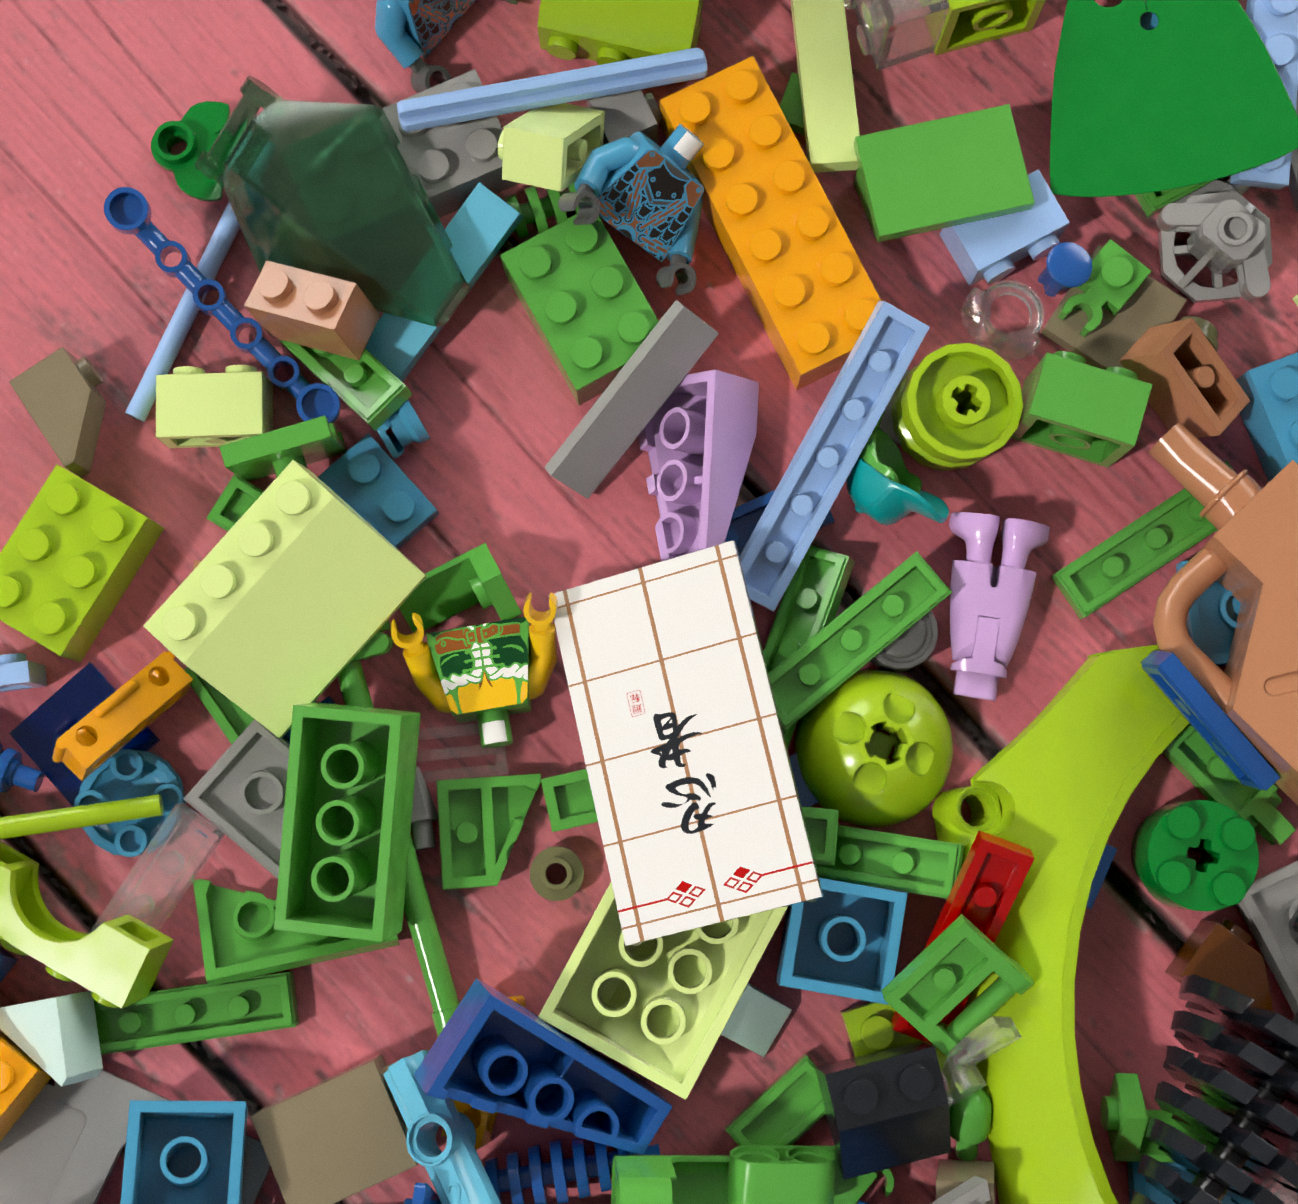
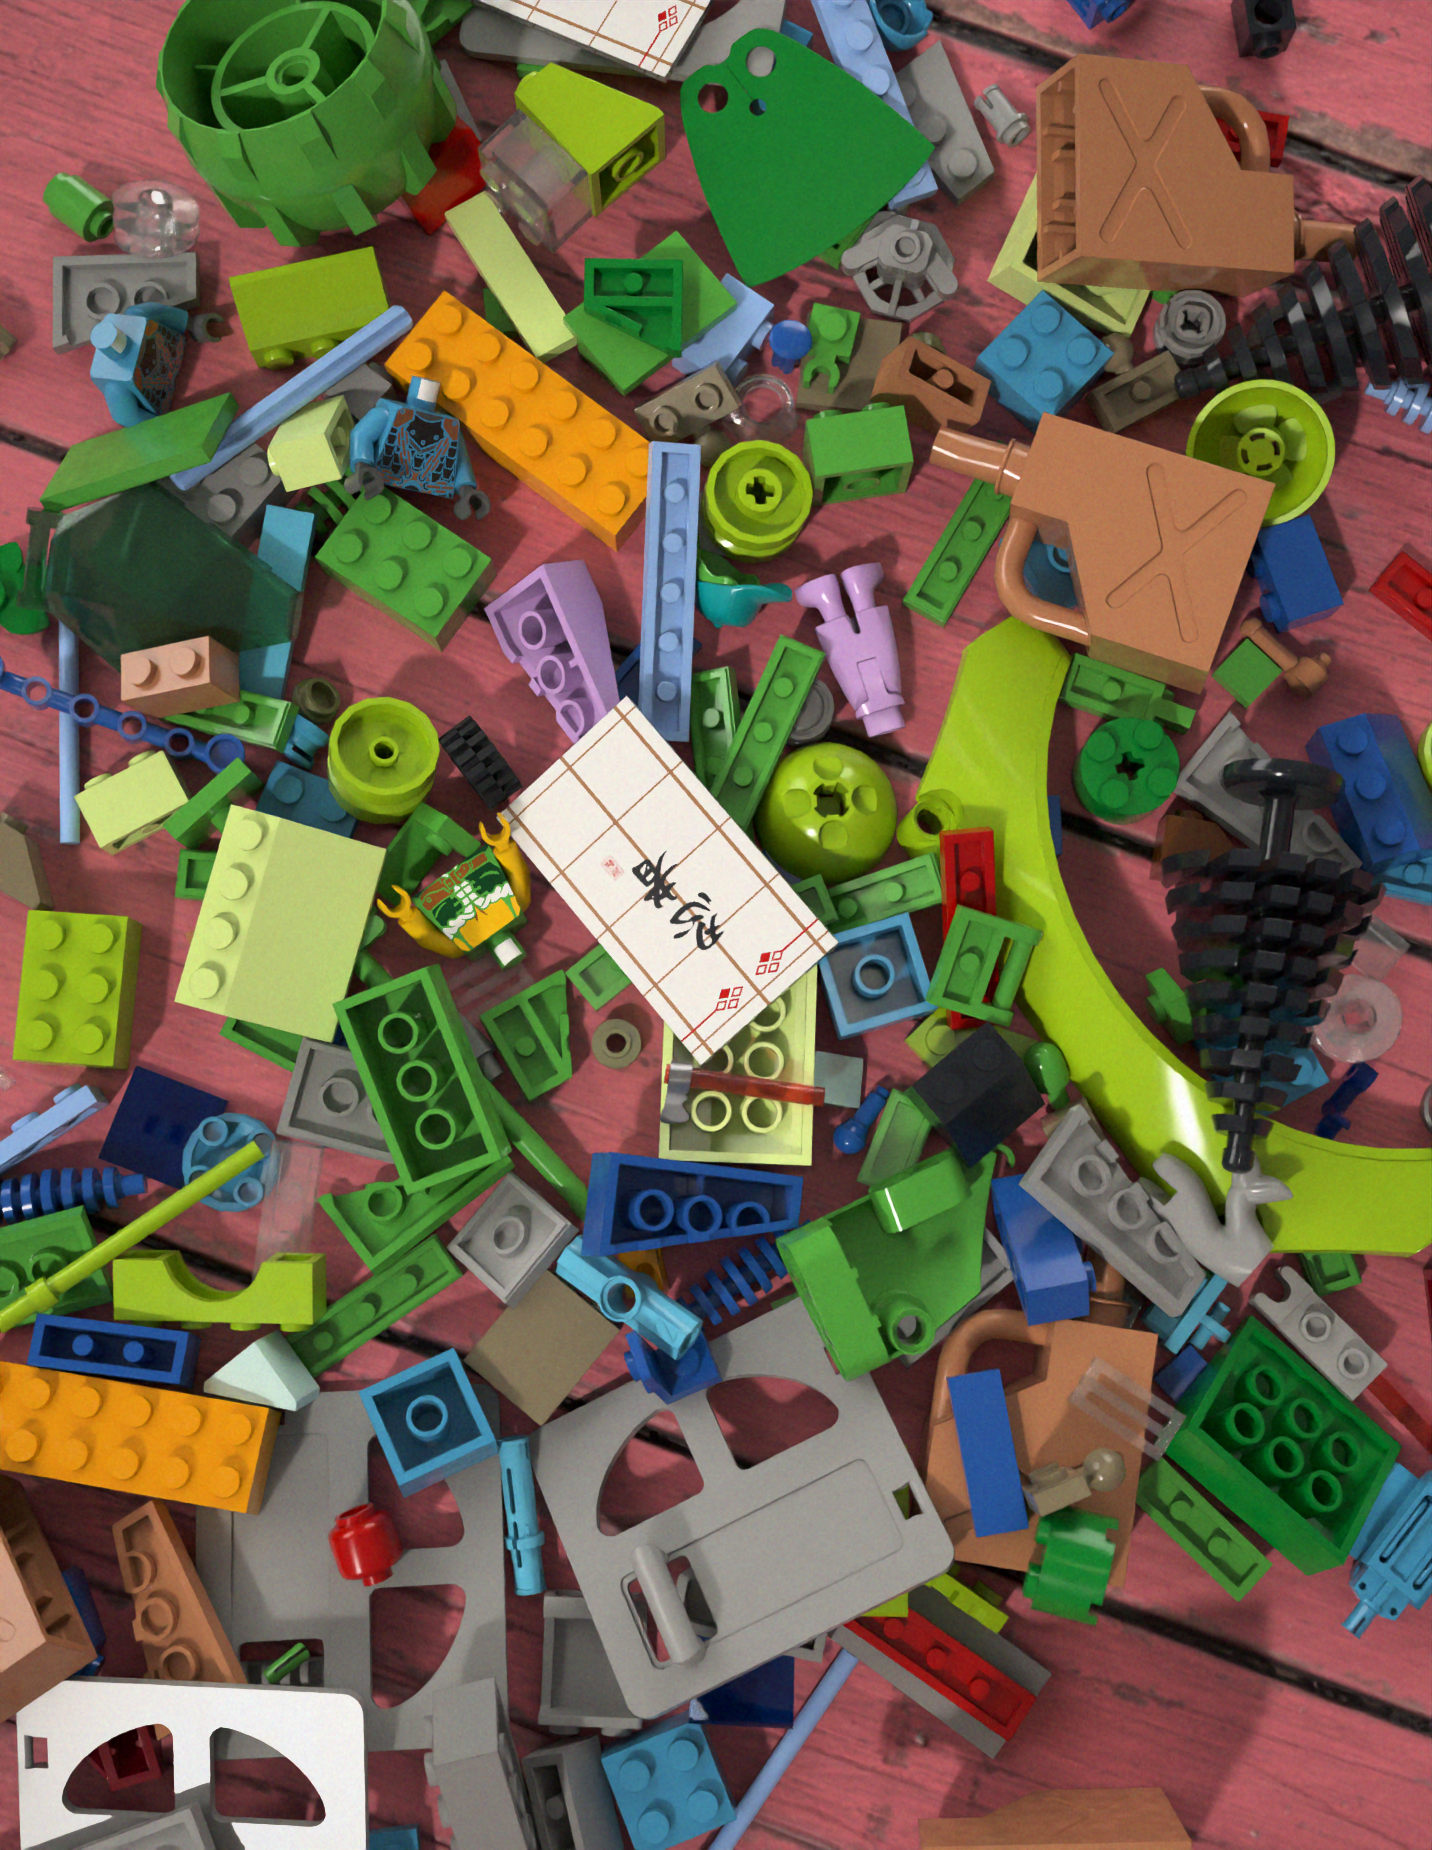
camera: 30 degrees left, 0 degrees up
(122, 716) = (190, 1090): light orange piece -> none
(359, 1019) = (512, 1239): none -> light grey tile
(383, 75) = (140, 453): none -> bright green tile
(434, 394) = (316, 699): none -> olive plate
(466, 484) = (382, 760): none -> lime wheel
(559, 533) = (480, 762): none -> black tyre
(602, 947) = (682, 1076): none -> clear red piece
(631, 400) = (484, 624): light grey tile -> none
(743, 1080) = (851, 1135): none -> blue piece
(936, 285) = (689, 409): none -> dark tan plate
(938, 153) = (638, 298): none -> green wing
(960, 1069) = (1021, 1009): clear slope -> none
(1209, 720) = (1081, 654): blue tile -> none

